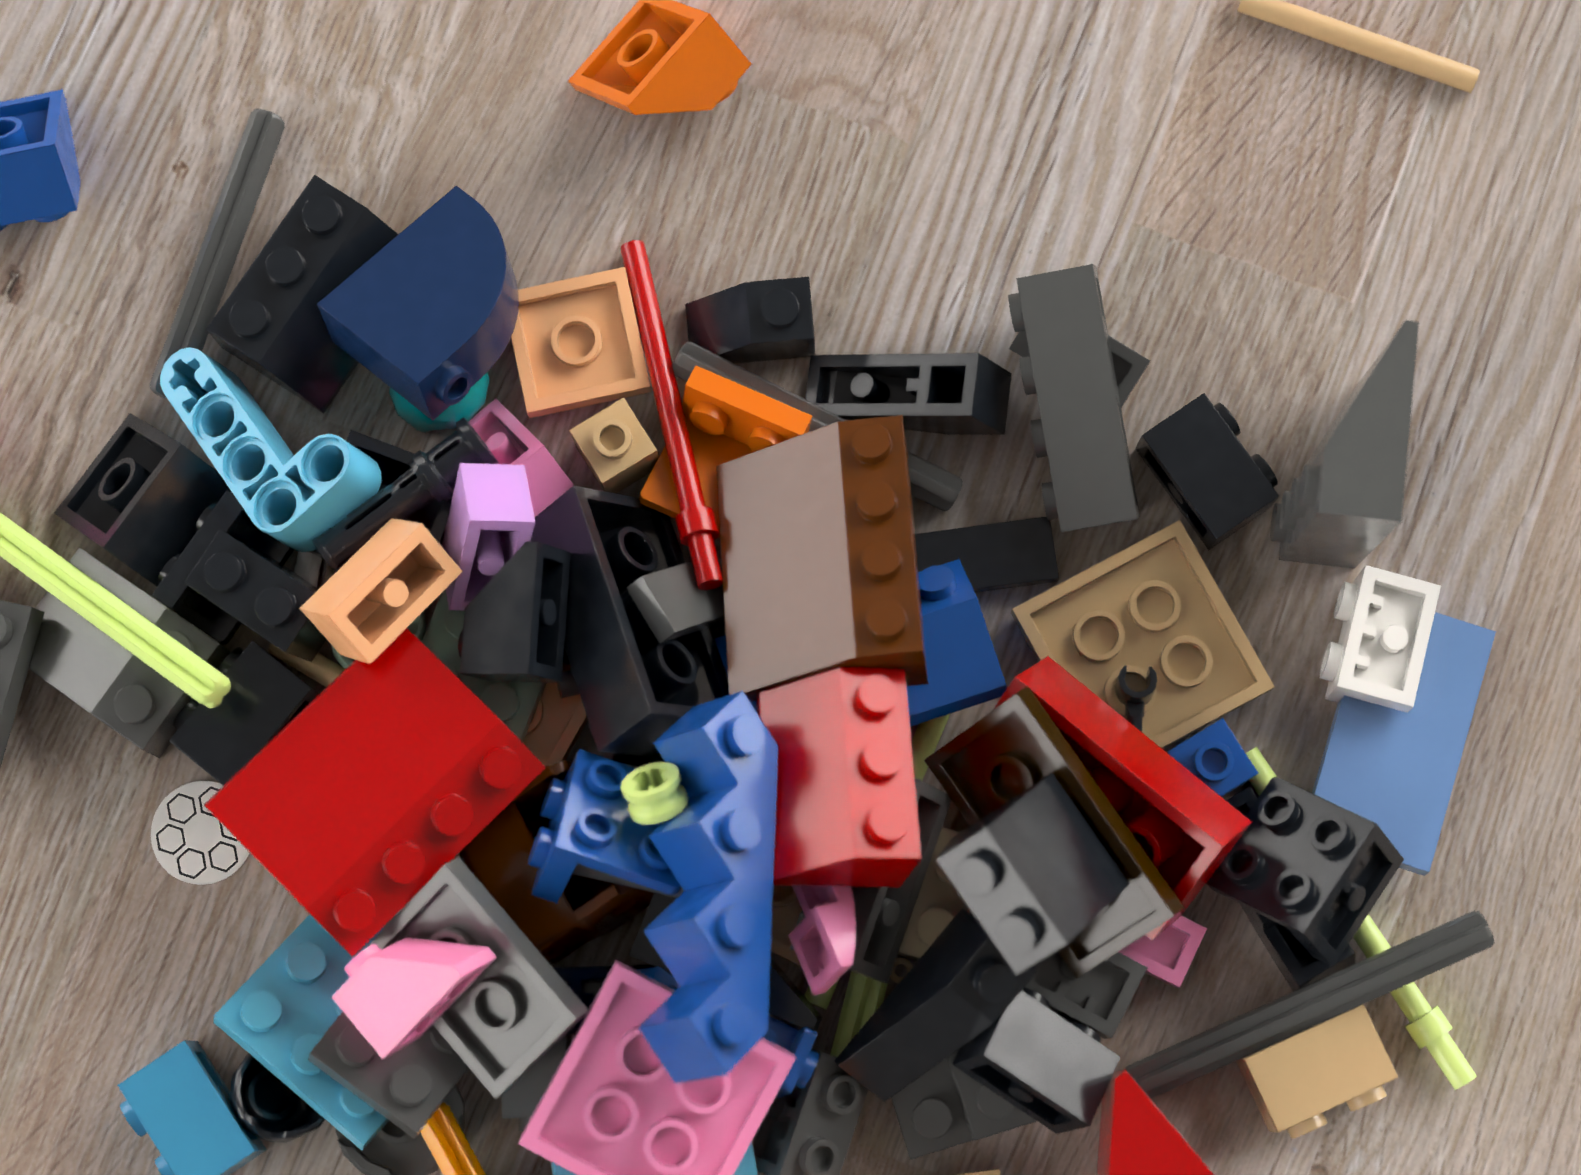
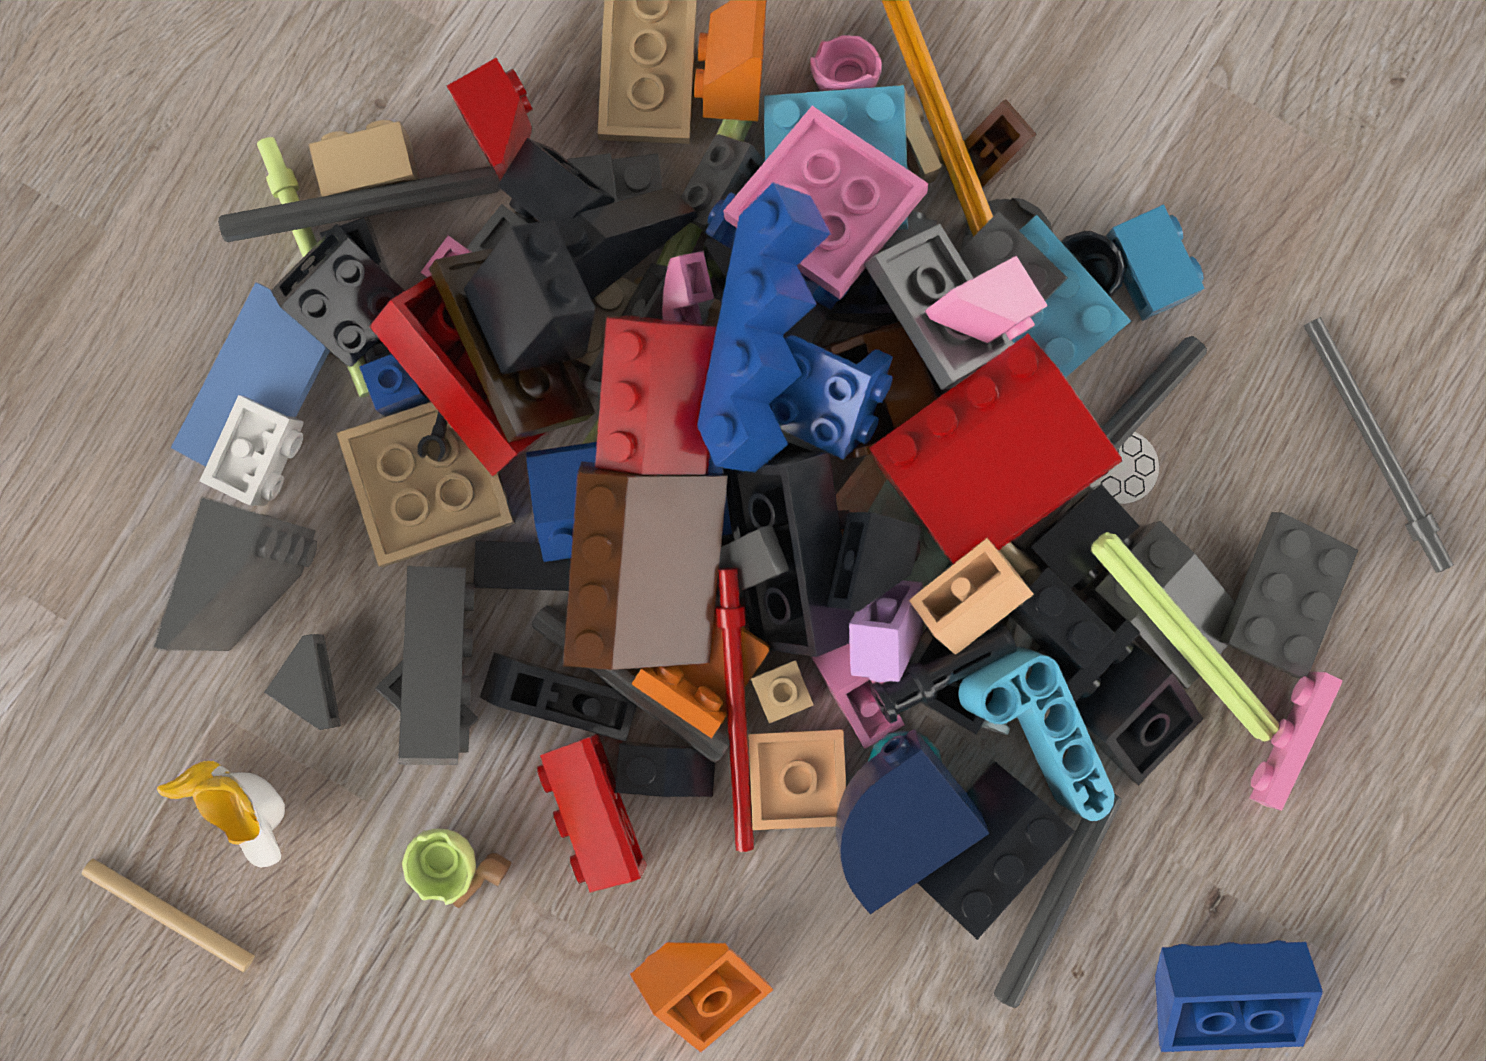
camera: 175 degrees left, 5 degrees up
(177, 929) = (1136, 411): none -> dark grey axle
(654, 793) = (791, 395): yellowish green bush -> none
(838, 251) = (592, 814): none -> slope
(953, 165) = (492, 869): none -> medium nougat hand
(1020, 155) = (439, 865): none -> yellowish green hair
(1208, 470) = (349, 599): black brick -> none
(1240, 348) = (306, 683): none -> dark grey slope
(1296, 187) = (237, 804): none -> hair

